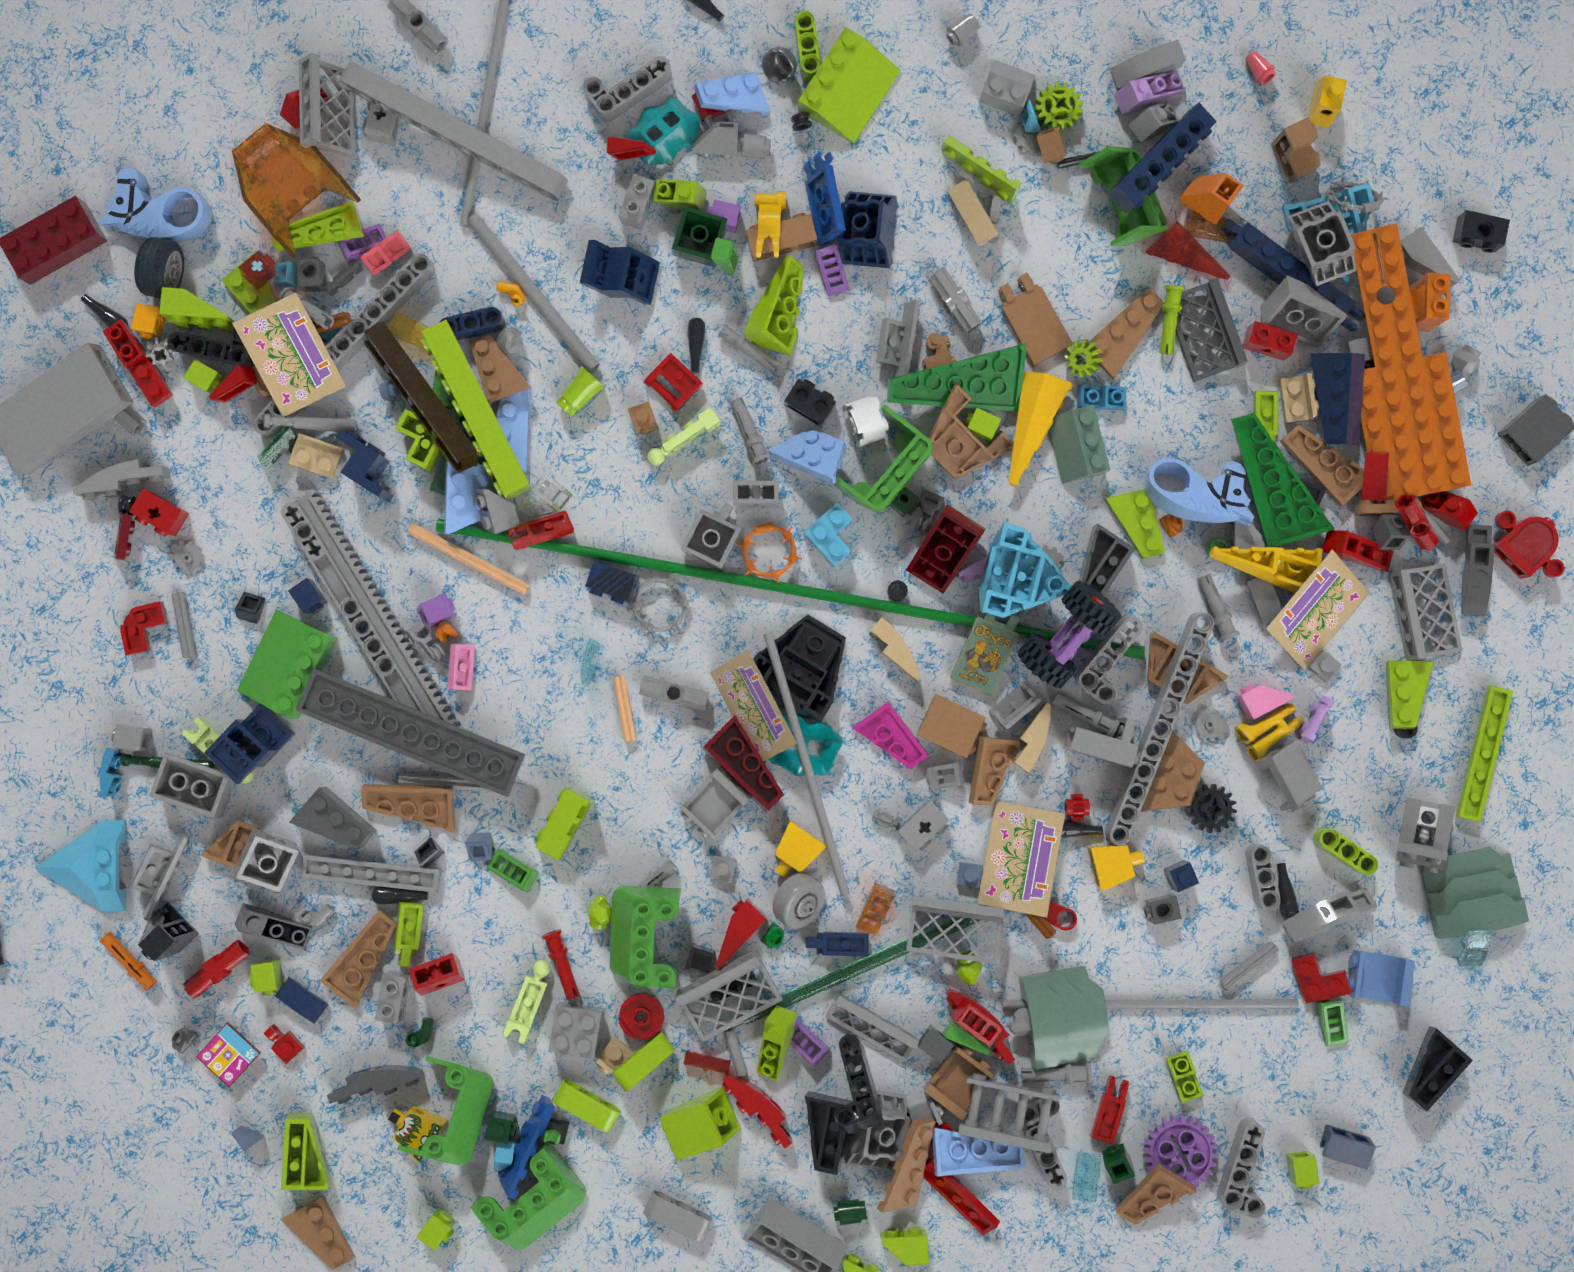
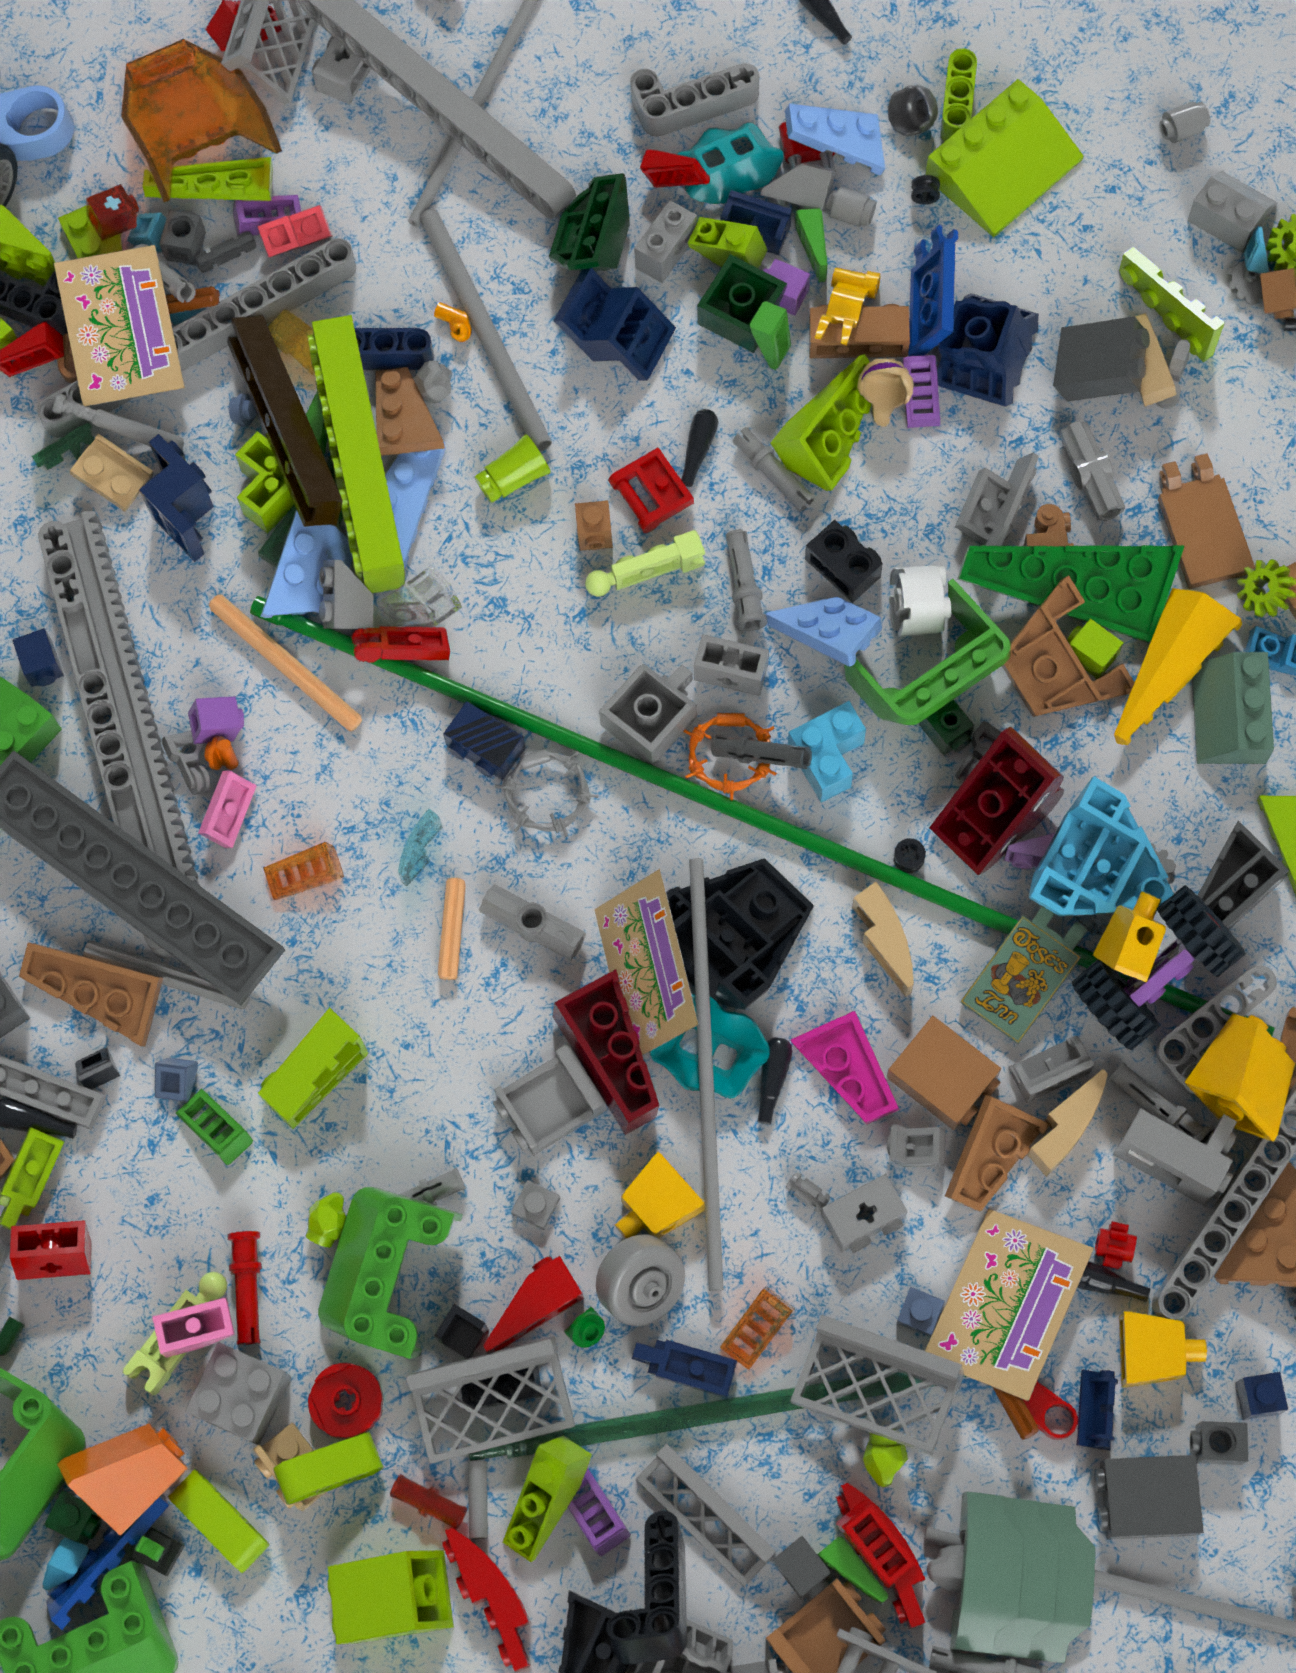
camera: 20 degrees right, 15 degrees down
(523, 1097) = (125, 1474): none -> orange slope
(536, 684) = (321, 877): none -> clear orange slope
(538, 1003) = (193, 1327): none -> bright pink slope
(586, 205) = (594, 226): none -> dark green wedge
(694, 169) = (771, 219): none -> dark blue hinge
(733, 172) = (811, 233): none -> bright green slope
(782, 548) = (748, 750): none -> dark grey pin
(809, 276) = (885, 386): none -> tan hair
(847, 753) = (773, 1077): none -> black piece
(945, 222) = (1101, 359): none -> dark grey brick
(1050, 623) = (1132, 938): none -> yellow torso
(1086, 908) = (1096, 1409): none -> dark blue hinge
(1128, 951) = (1149, 1497): none -> dark grey brick
(1135, 688) = (1245, 1076): none -> yellow slope

